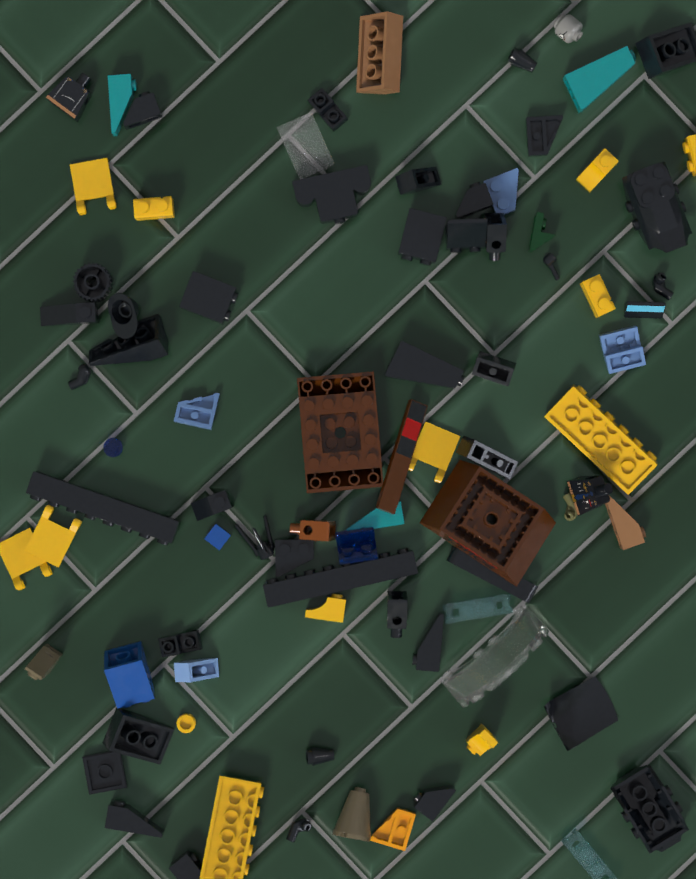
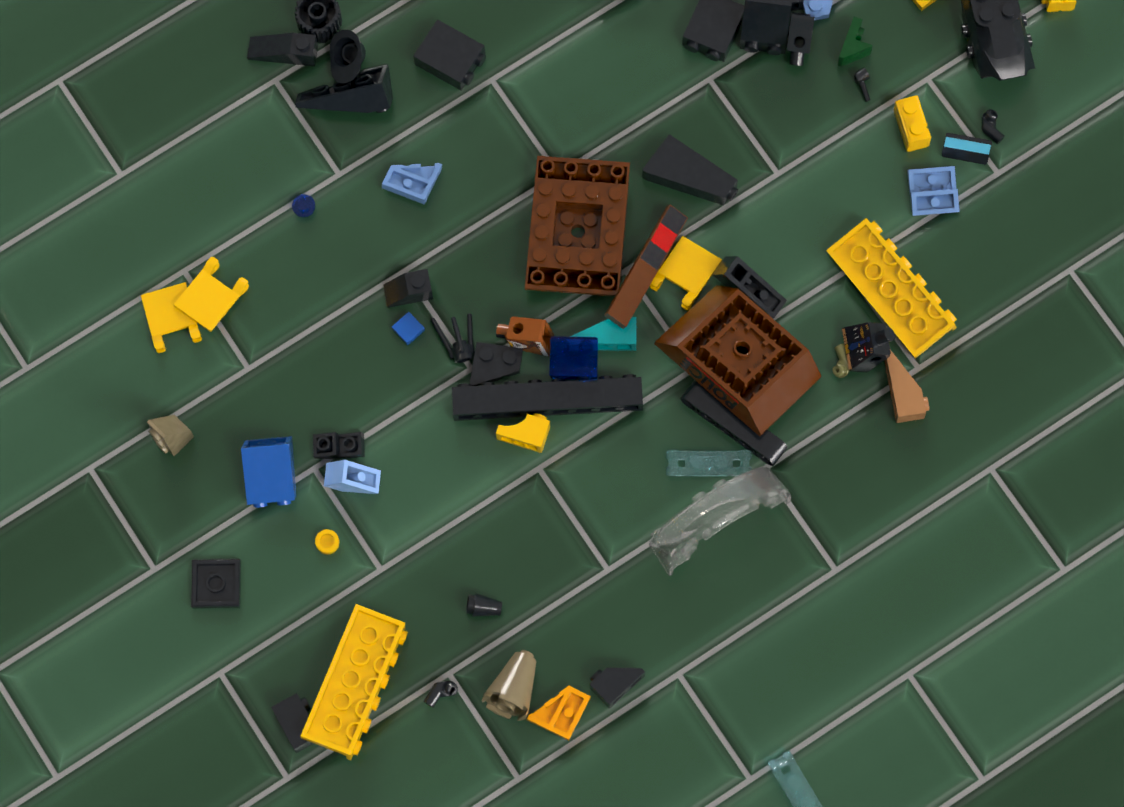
camera: 20 degrees right, 15 degrees down
(82, 377) = (283, 123): black arm -> none
(104, 507) = (278, 270): black brick -> none
(128, 819) = (231, 642): black slope -> none
(137, 736) = (265, 545): black slope -> none
(396, 607) = (609, 437): black torso -> none
(430, 647) = (641, 500): black slope -> none
(481, 740) = (687, 617): yellow arch -> none
(494, 368) = (774, 184): black brick -> none
(581, 713) = (816, 608): black piece -> none
(649, 809) = (886, 739): black slope -> none

